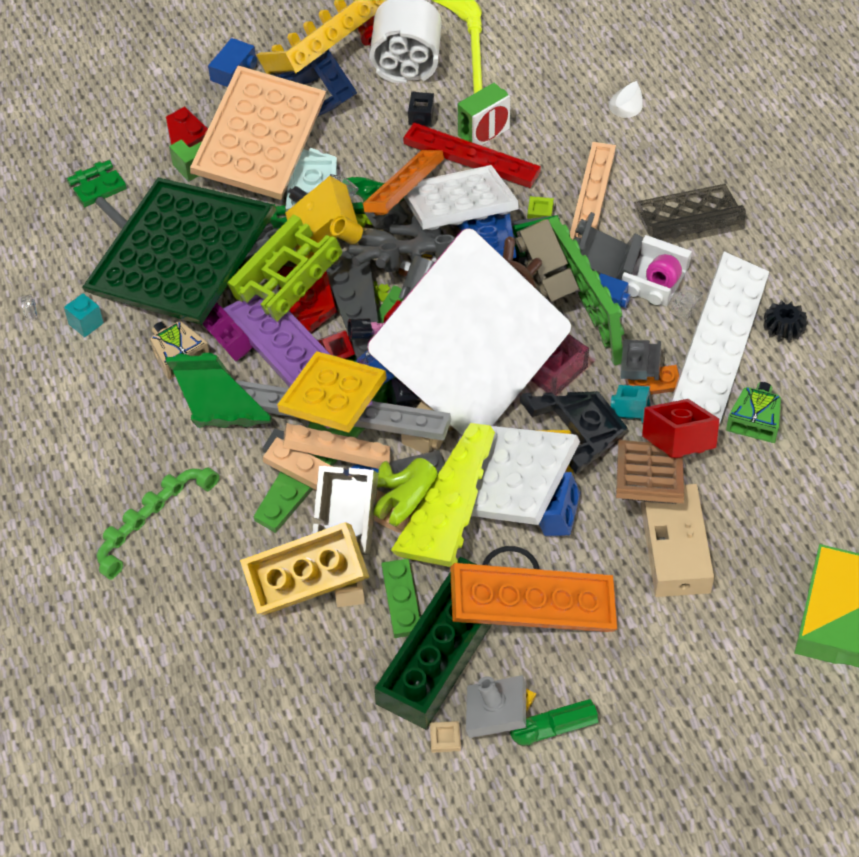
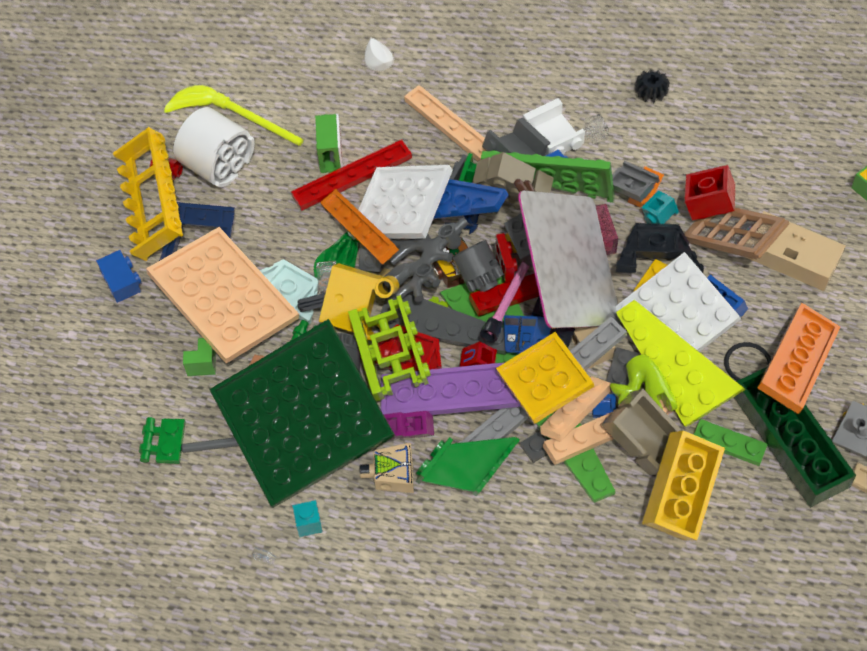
camera: 55 degrees left, 5 degrees up
(110, 565) = (539, 583): bright green bar -> none
(185, 127) = (159, 348): red wing -> none
(421, 114) = (281, 179): black brick -> none
(540, 207) = (440, 158): lime plate -> none
(664, 270) = (562, 123): dark pink head -> none
(692, 225) = (525, 96): clear smoke fence -> none
(721, 334) = (637, 128): white plate -> none
(756, 413) = (718, 145): bright green torso -> none

